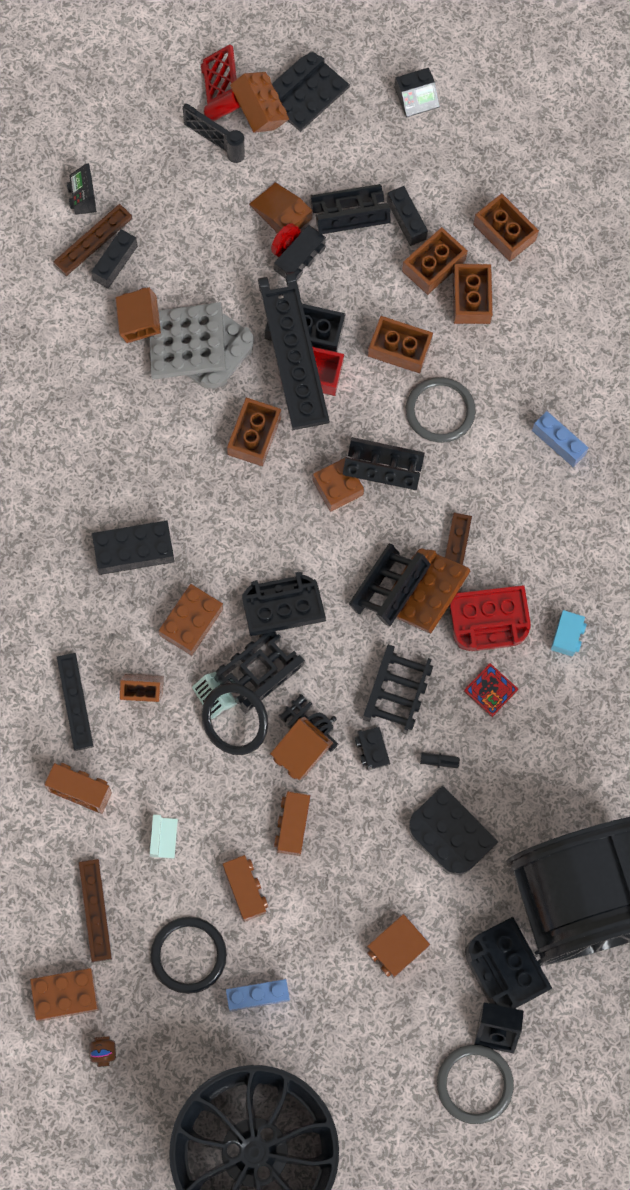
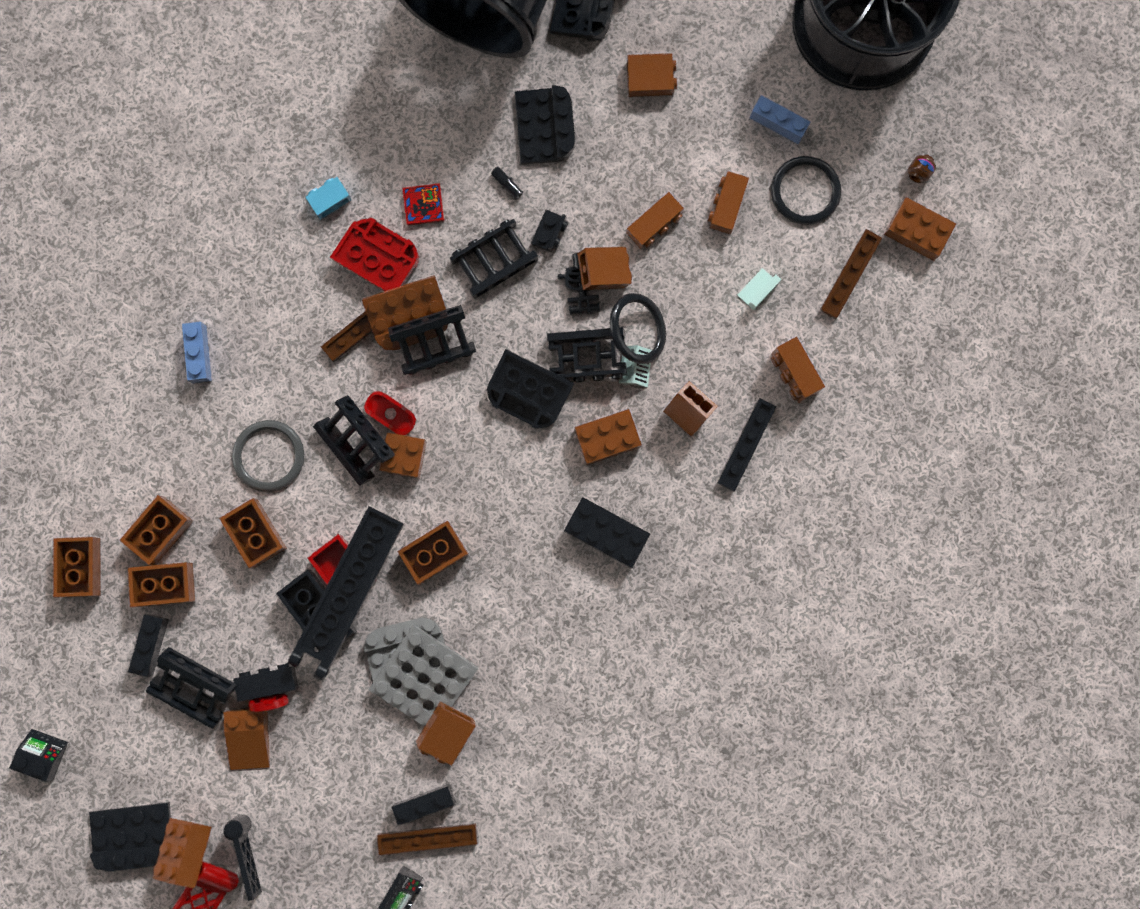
camera: 140 degrees left, 10 degrees up
(390, 506) = (379, 402): none -> red piece

